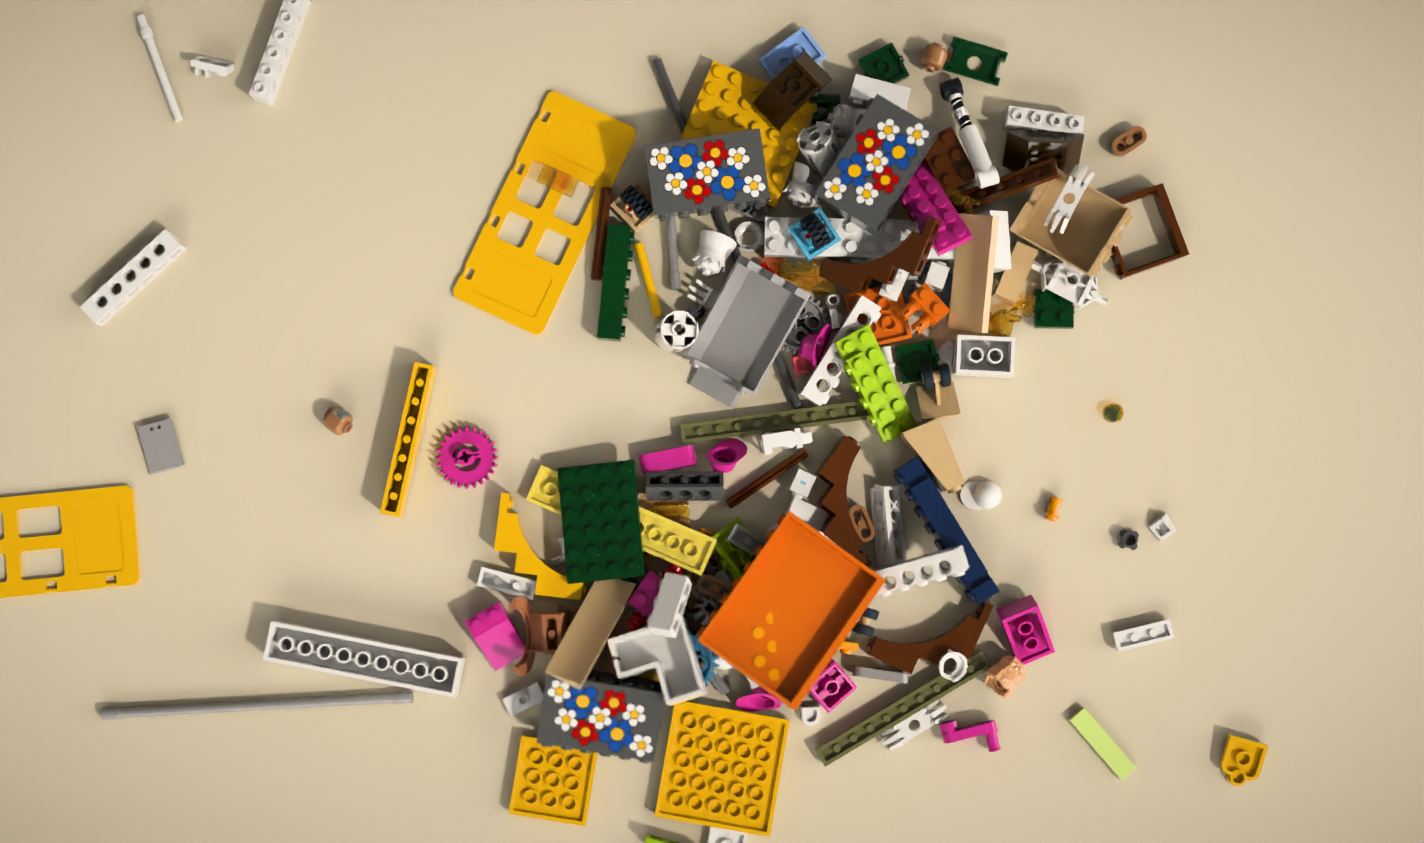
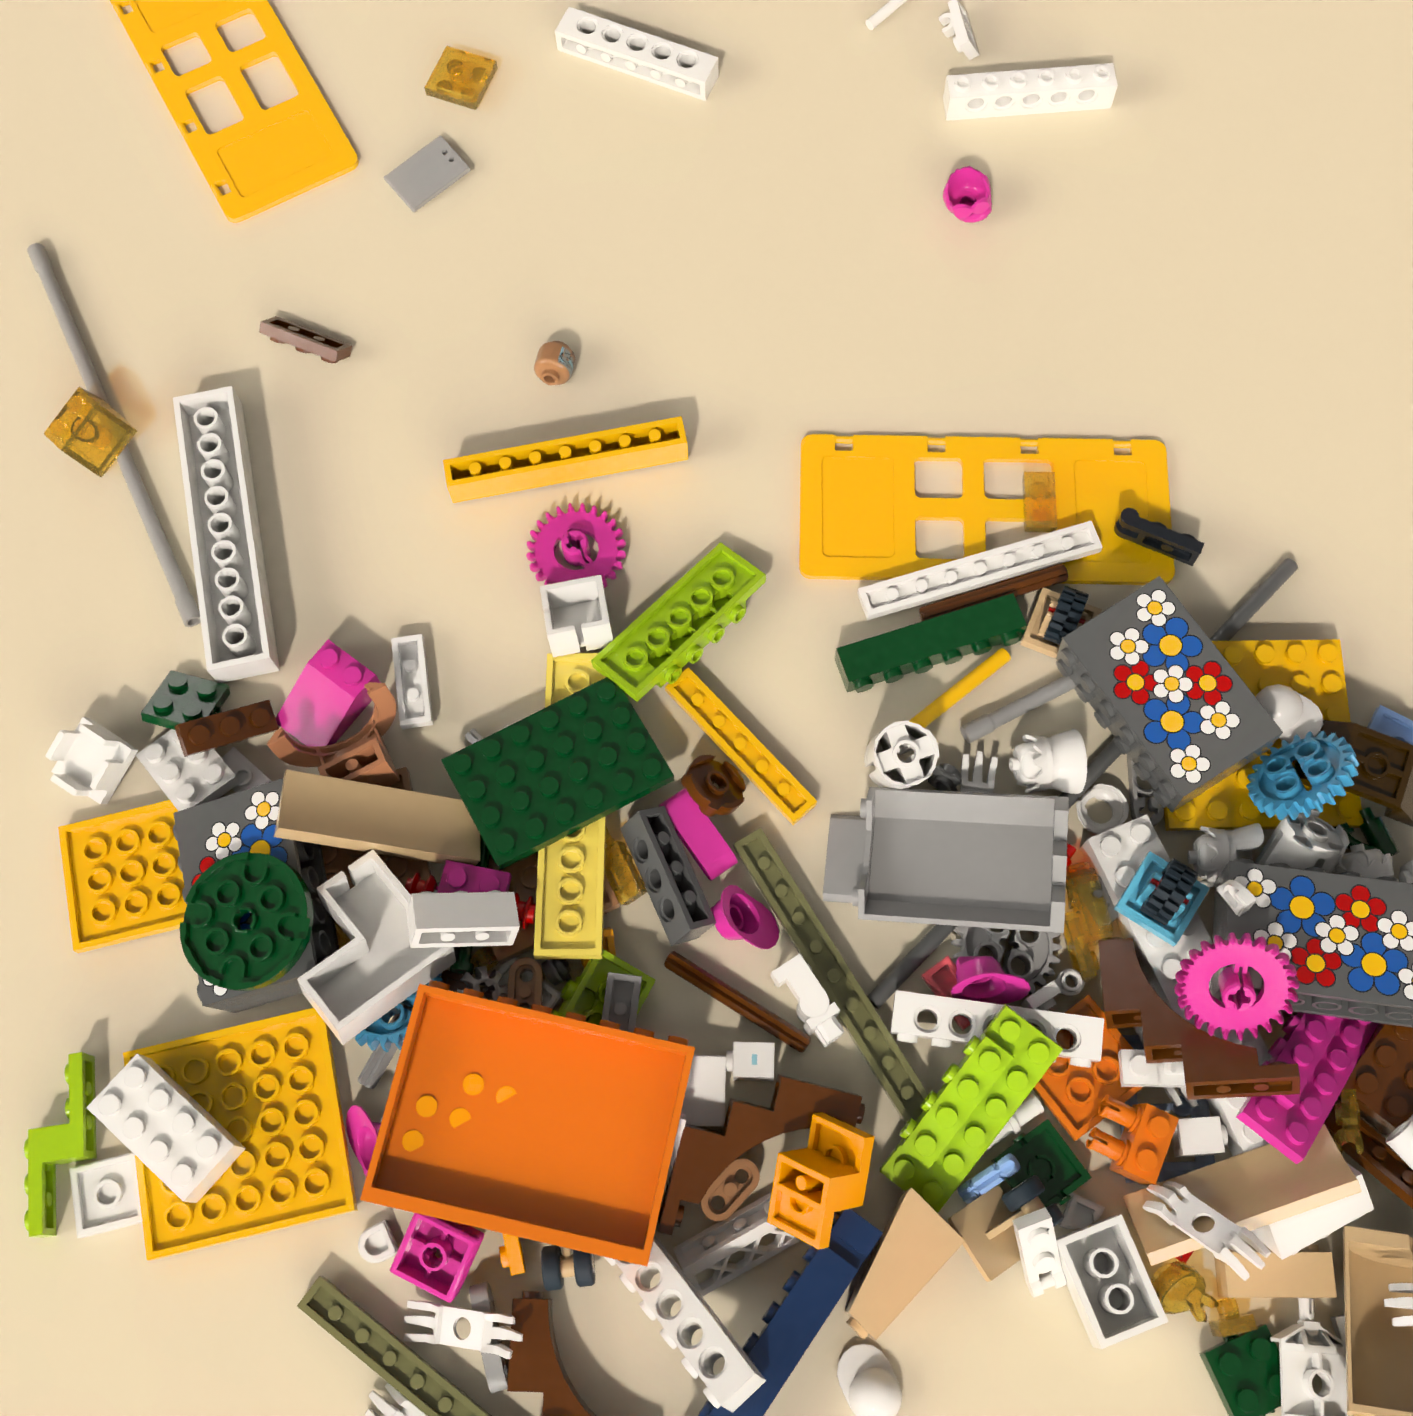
camera: 70 degrees right, 15 degrees down
(97, 396) = (461, 77): none -> clear yellow plate
(250, 565) = (305, 339): none -> plate
(260, 717) = (90, 431): none -> clear yellow slope
(338, 122) = (968, 195): none -> dark pink hair
(464, 717) = (184, 699): none -> plate
(476, 782) = (90, 760): none -> white panel
(492, 697) = (226, 728): none -> reddish brown plate
(505, 729) = (186, 779): none -> white plate
(512, 474) = (576, 615): none -> white piece
(512, 539) = (481, 658): yellow arch -> none
(542, 416) = (680, 623): none -> lime plate
(584, 235) = (979, 570): none -> white plate
(609, 126) = (1158, 537): none -> black plate
(617, 741) = (279, 927): none -> dark green plate
(627, 414) = (741, 746): none -> yellow plate
(653, 445) = (712, 800): none -> reddish brown plate
(707, 803) = (166, 1128): none -> white brick
(744, 113) = (1291, 711): none -> white cap
(785, 114) = (1324, 760): none -> dark azure gear
(835, 201) = (1237, 896): none -> white tile
(865, 694) = (445, 1328): none -> white piece
(879, 475) = (820, 1180): none -> light orange bracket
(887, 229) = (1240, 1004): none -> gear
(911, 390) = (989, 1178): none -> light blue axle
(957, 383) = (1039, 1251): none -> white plate
(991, 296) = (1219, 1239): none -> white piece

